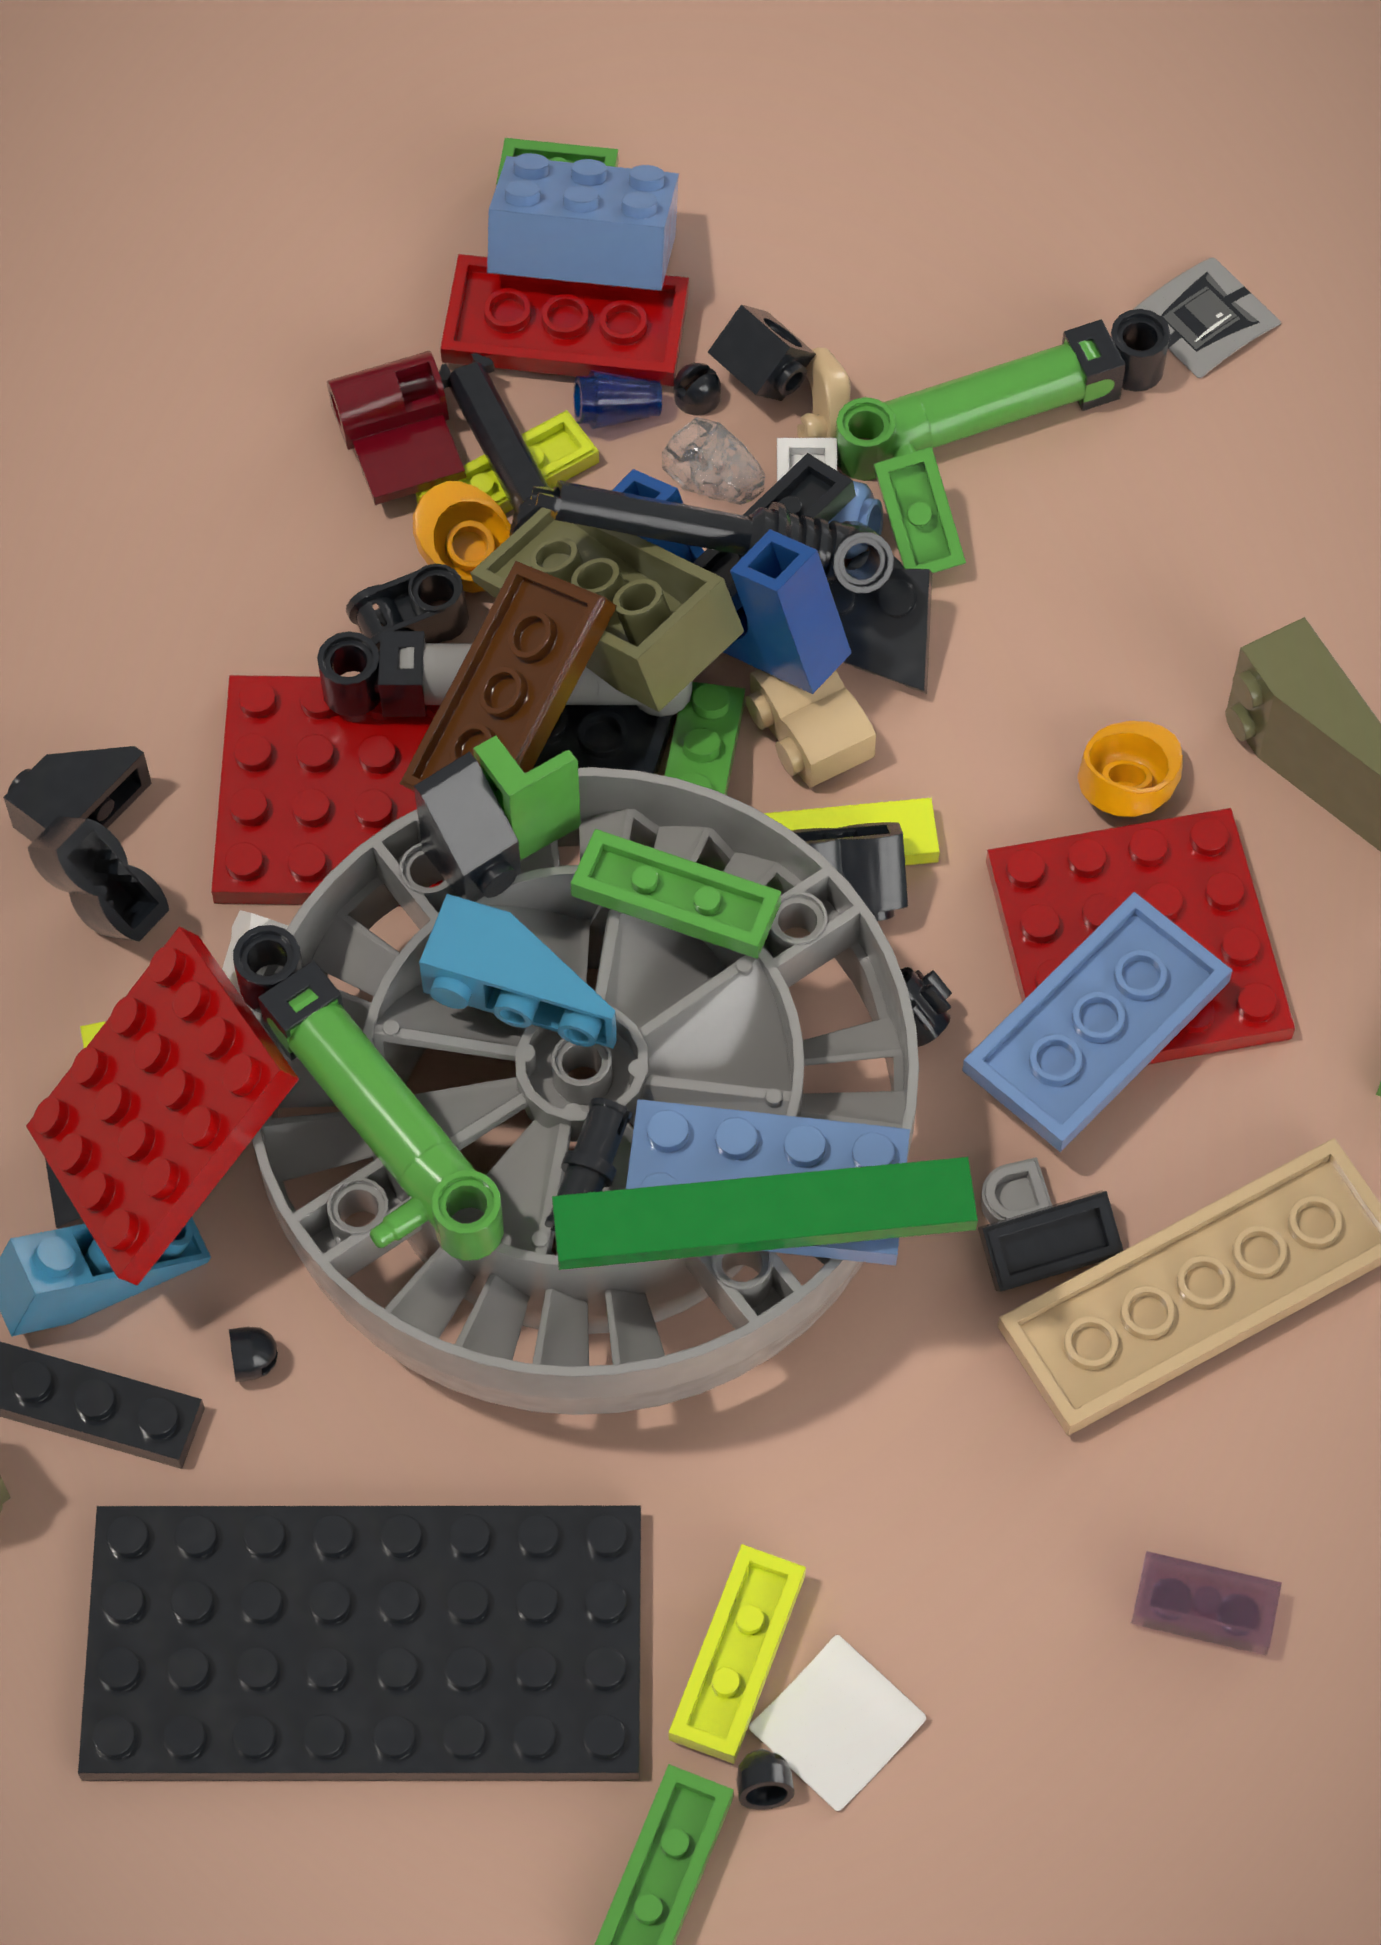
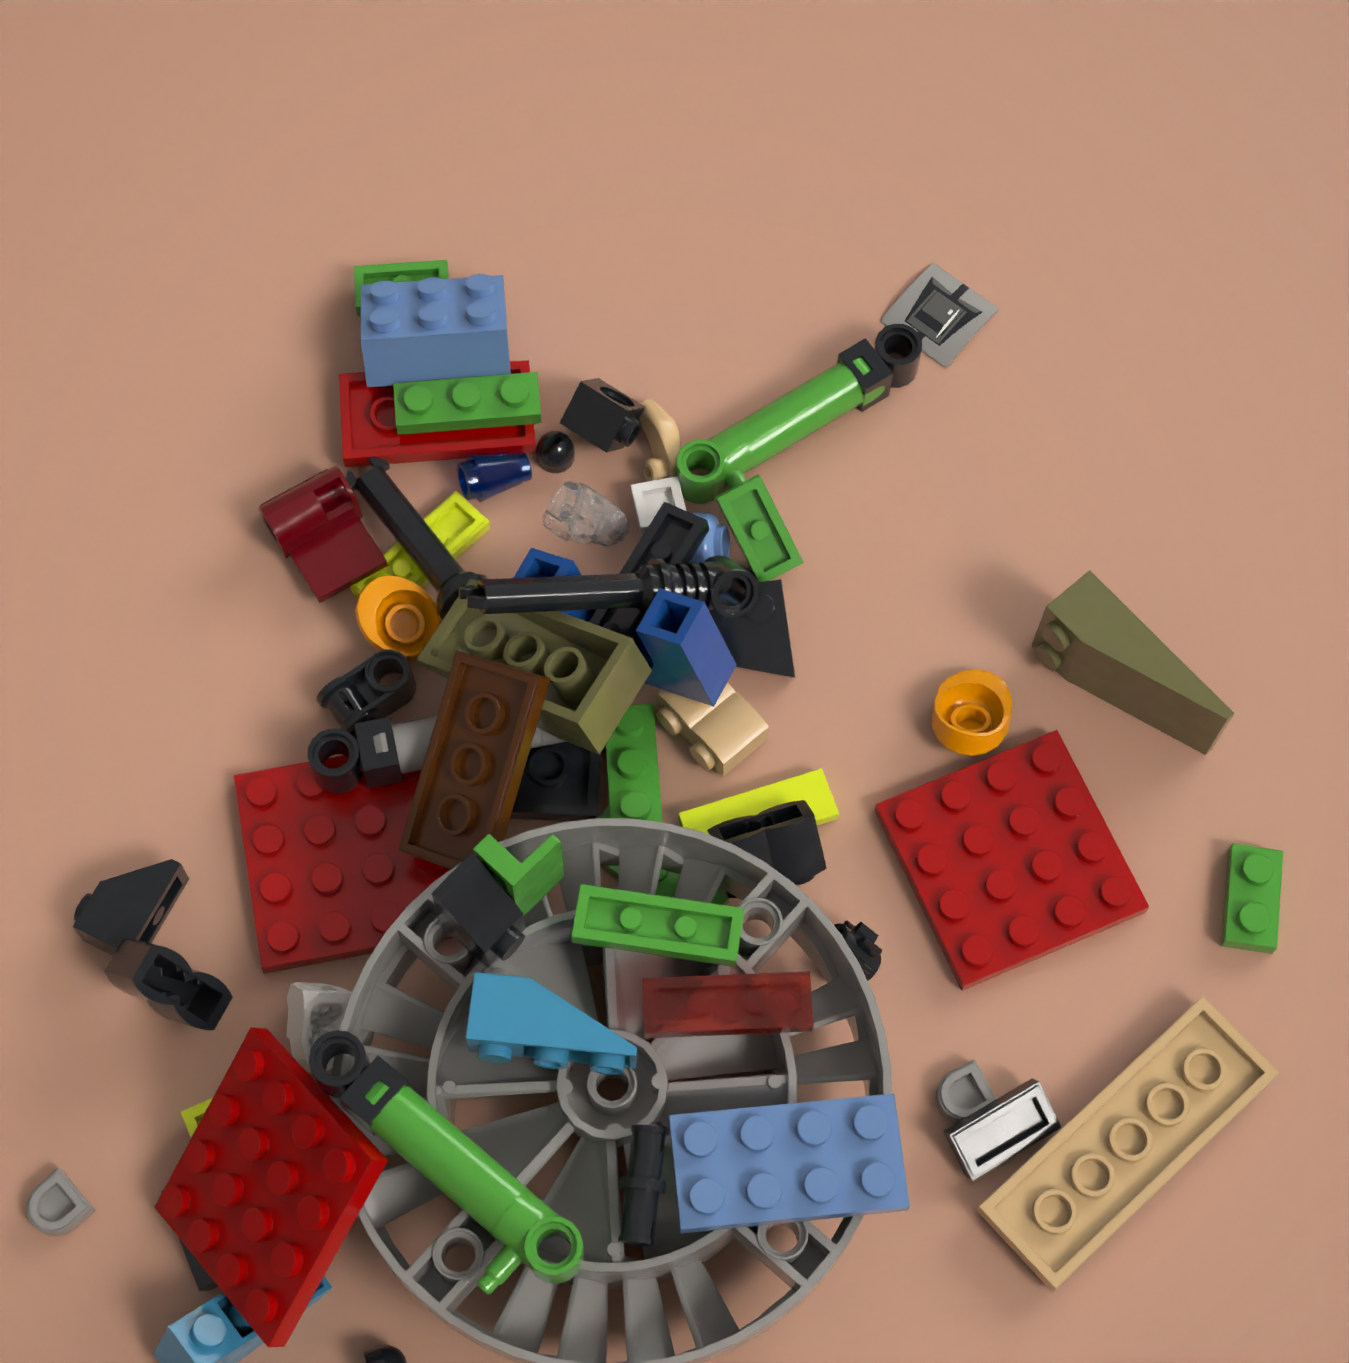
camera: 15 degrees left, 5 degrees up
(602, 311) = (467, 403): none -> bright green plate
(736, 994) = (727, 1004): none -> clear red plate
(764, 1213) = (796, 1200): green tile -> none
(1096, 1021) = (1000, 940): medium blue plate -> none

